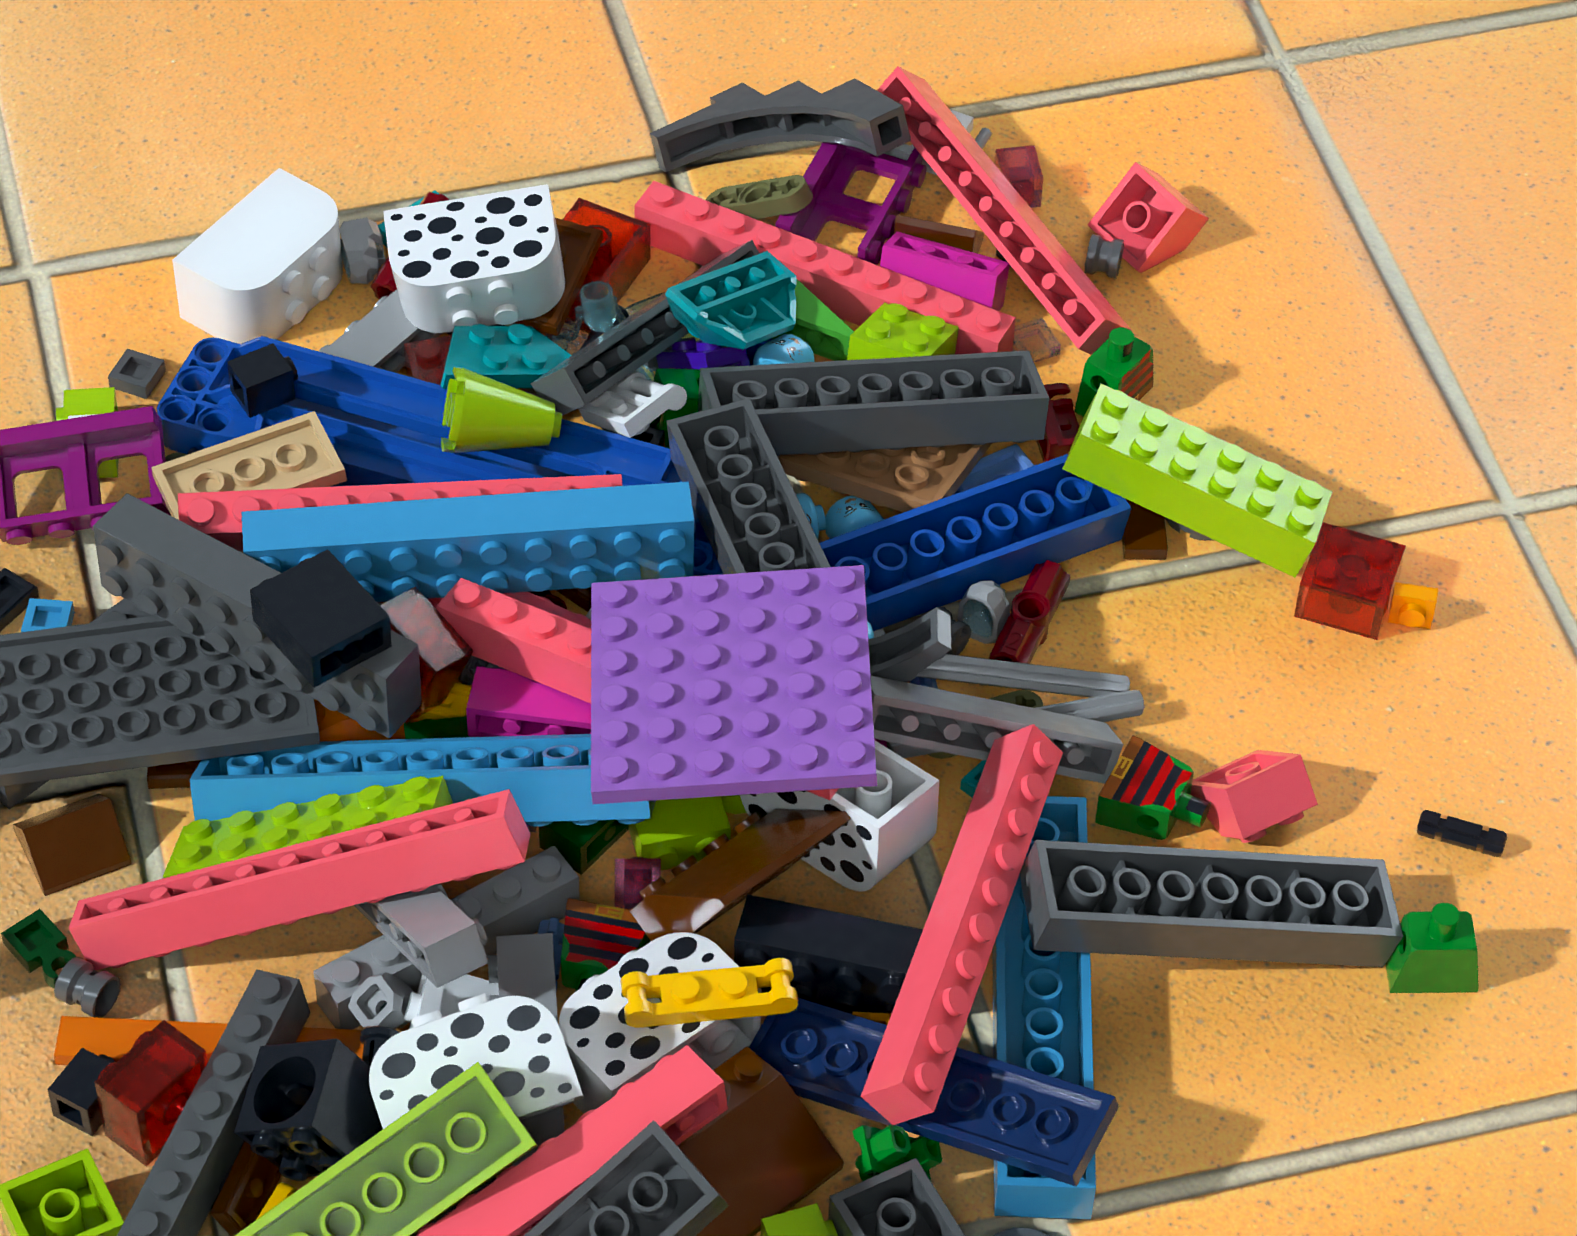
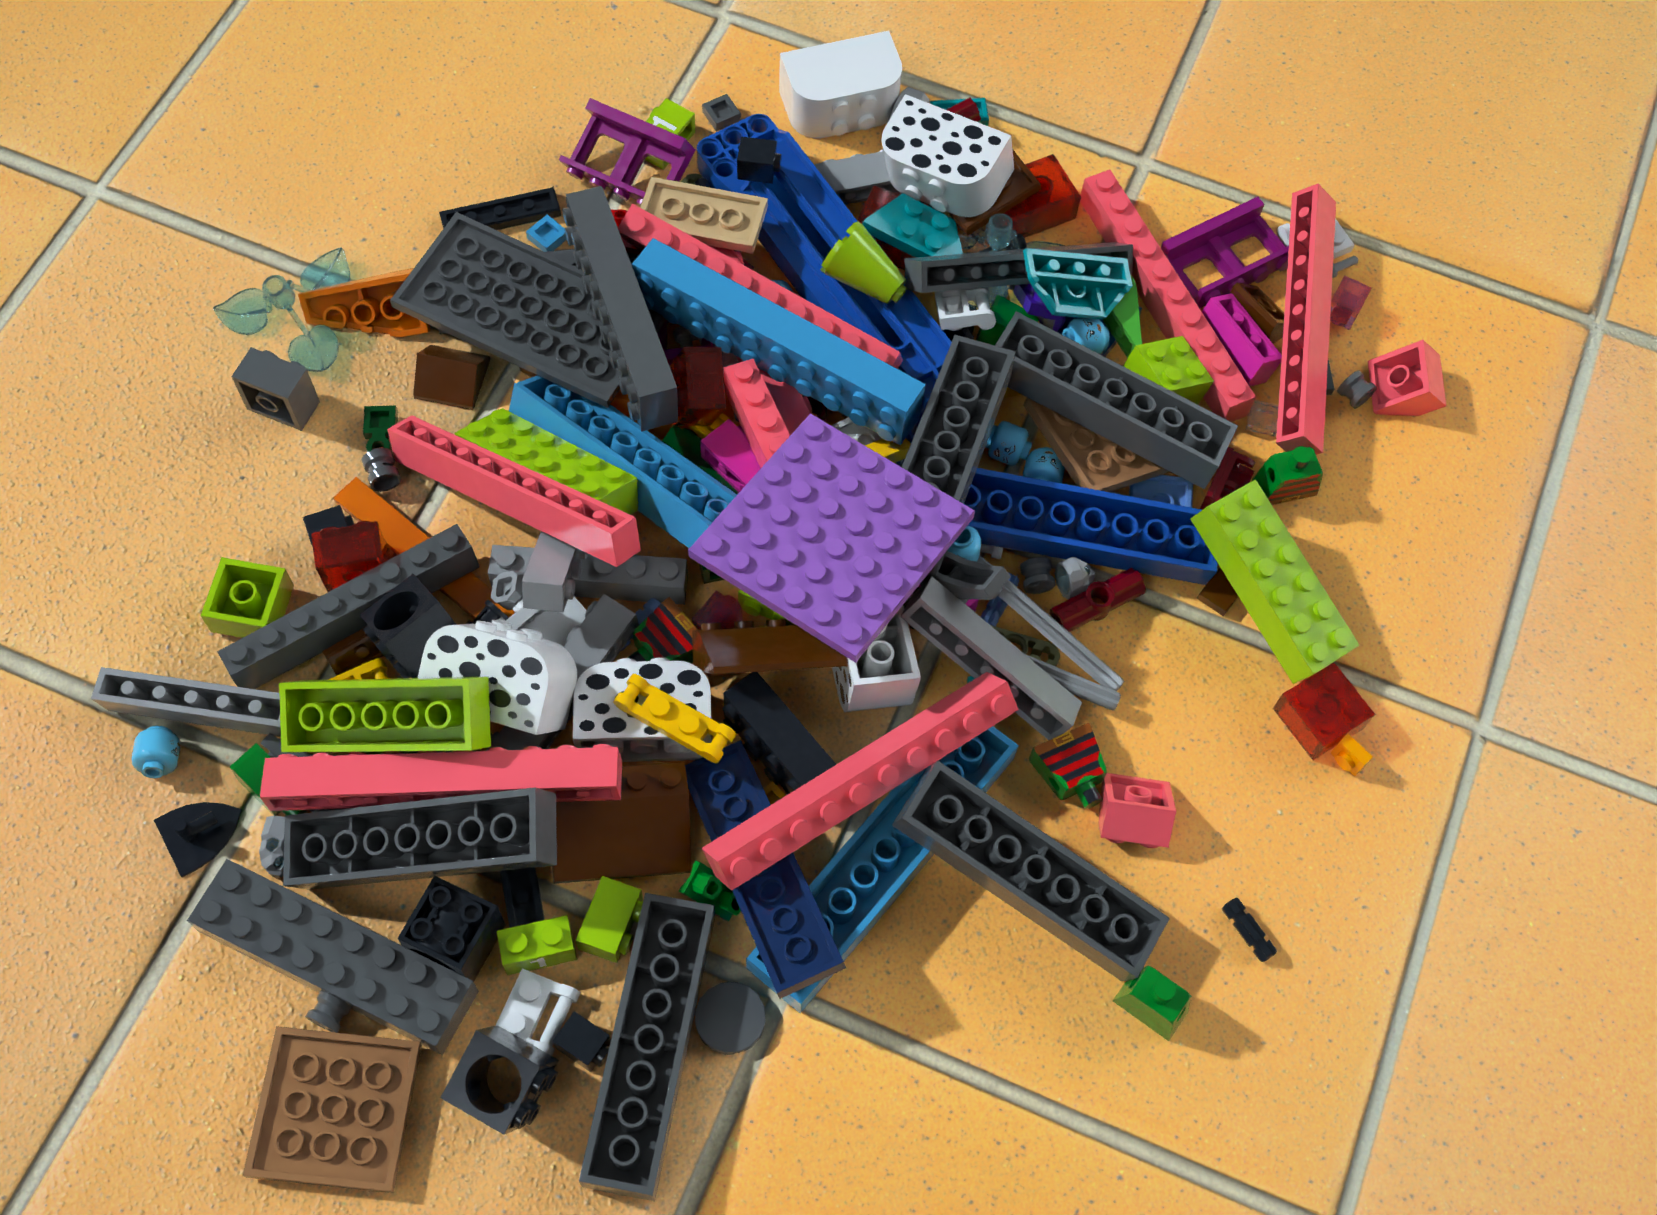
camera: 35 degrees right, 15 degrees up
(320, 618) = (628, 335): black brick -> none
(744, 117) = (1203, 159): dark grey arch -> none
(765, 197) = (1168, 220): olive beam -> none

